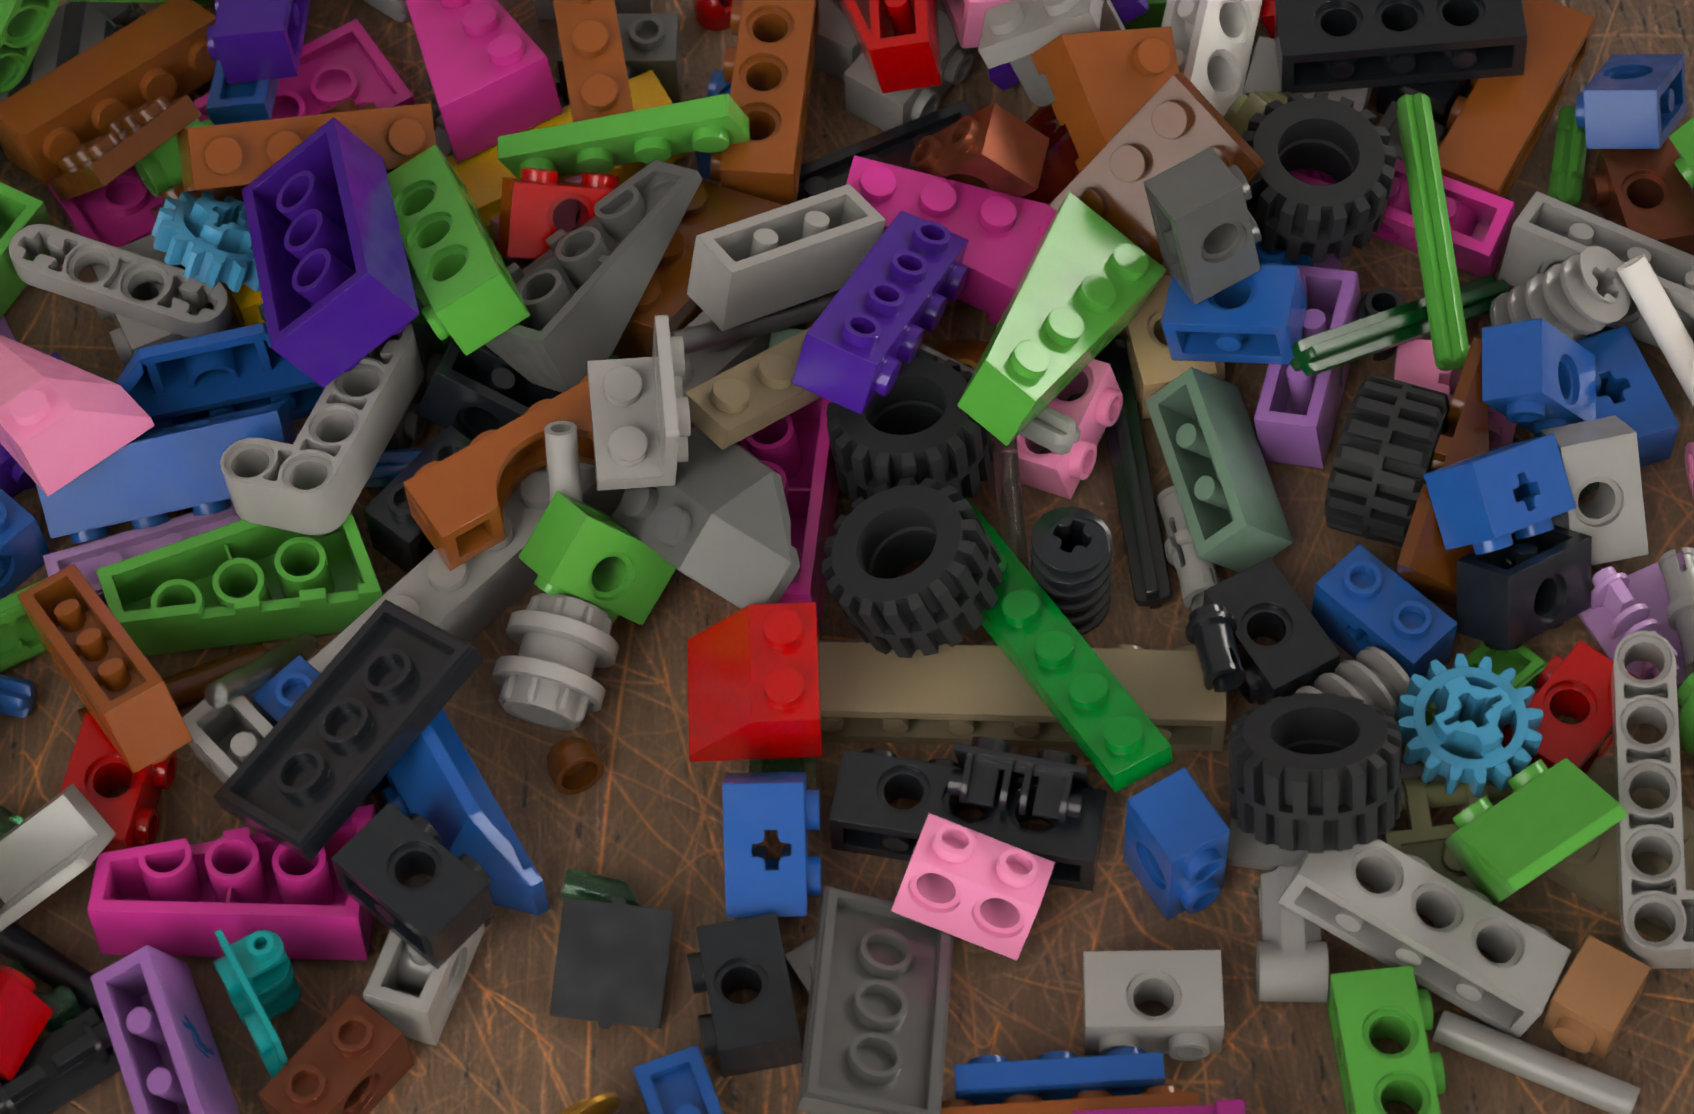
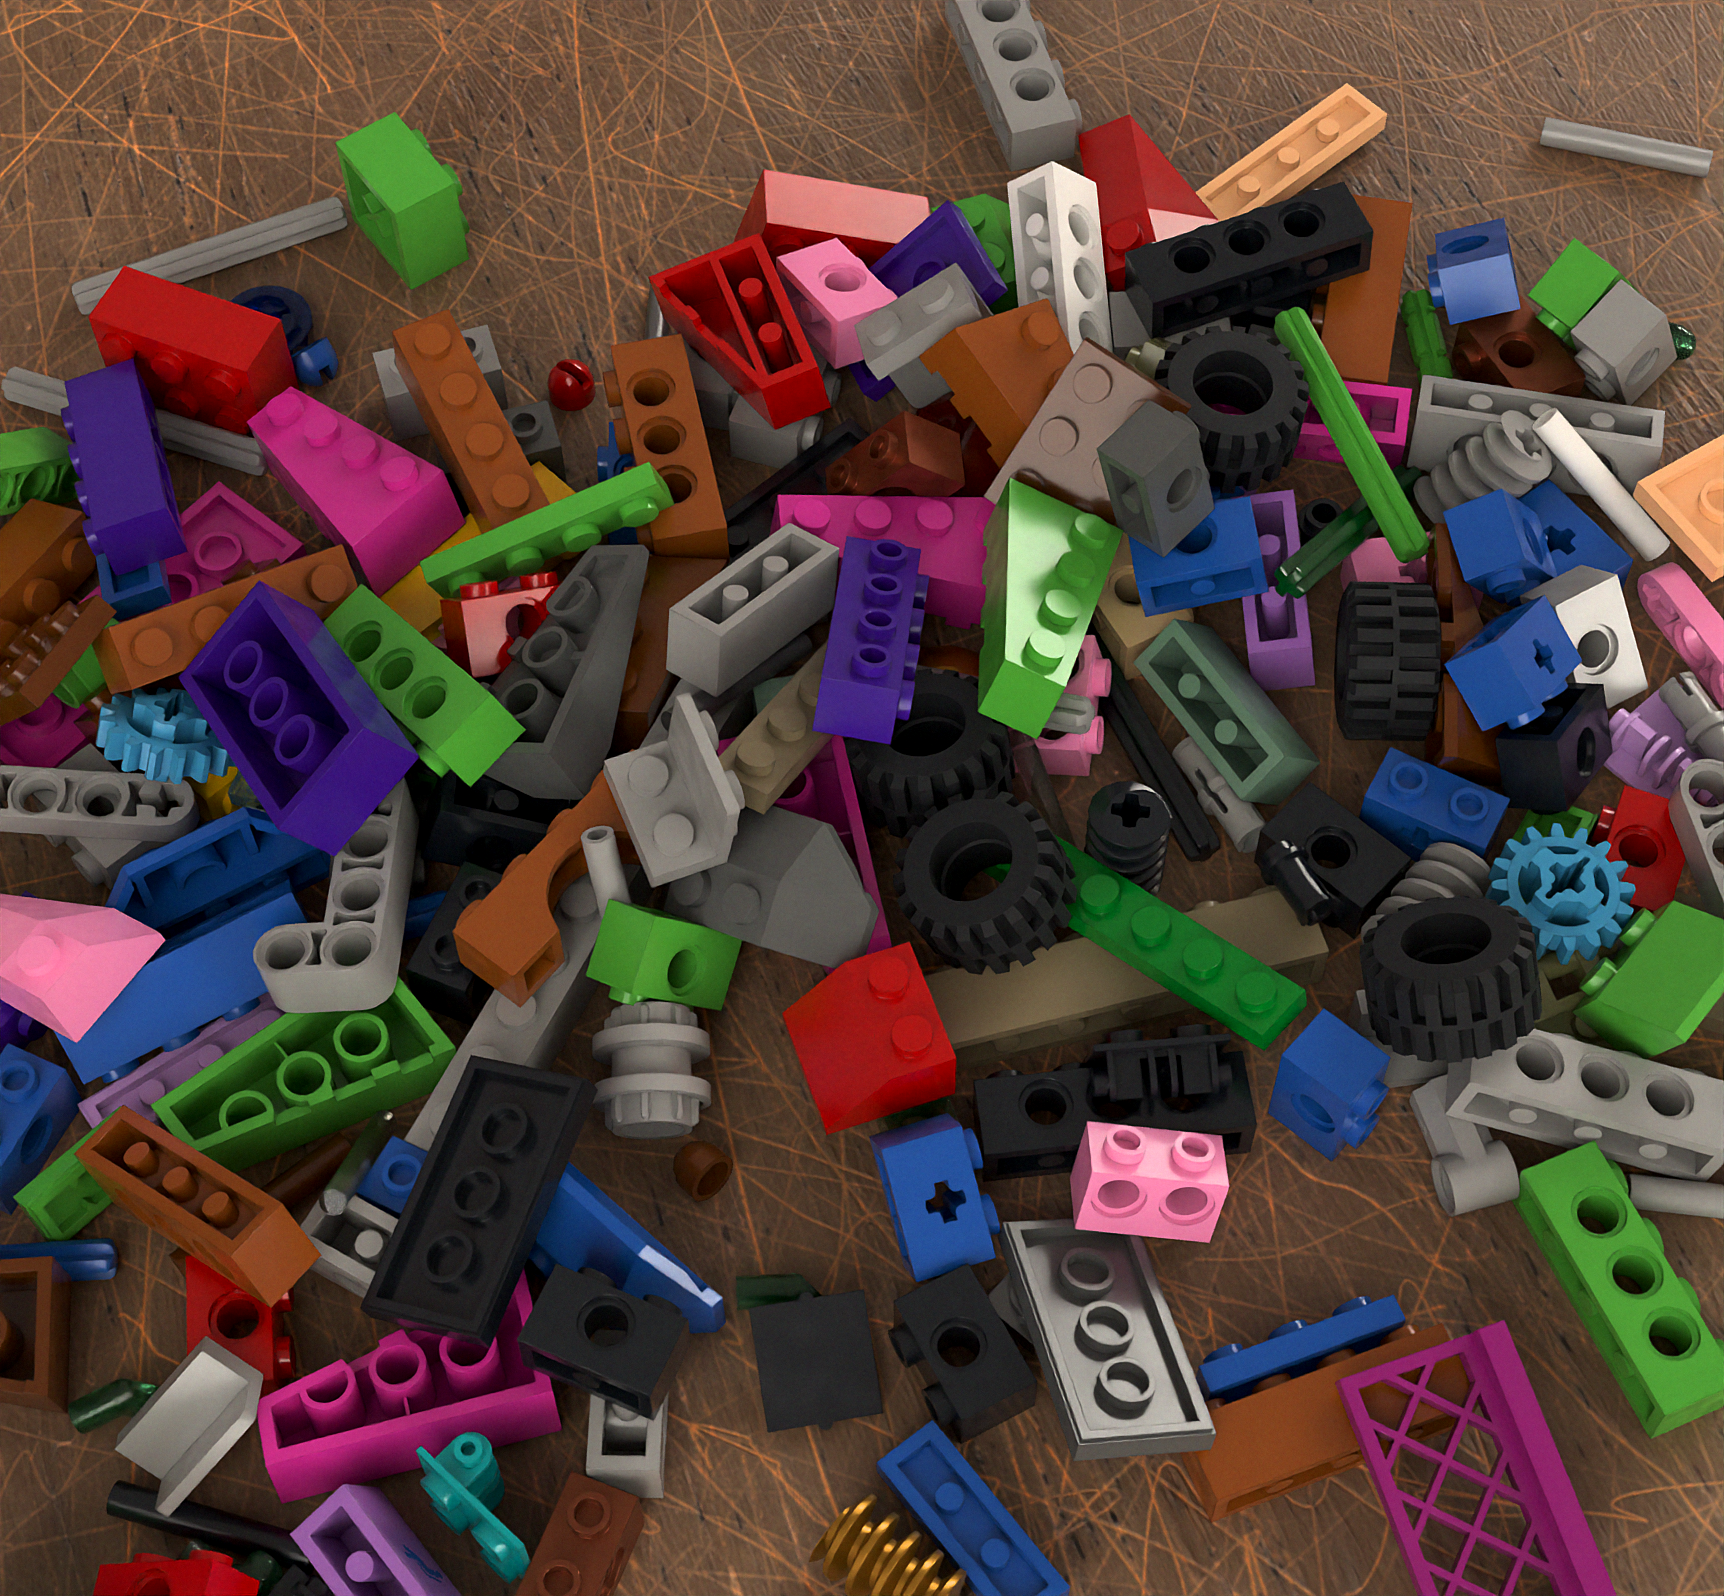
camera: 20 degrees left, 0 degrees up
(1180, 979) = (1382, 1219): light grey brick -> none

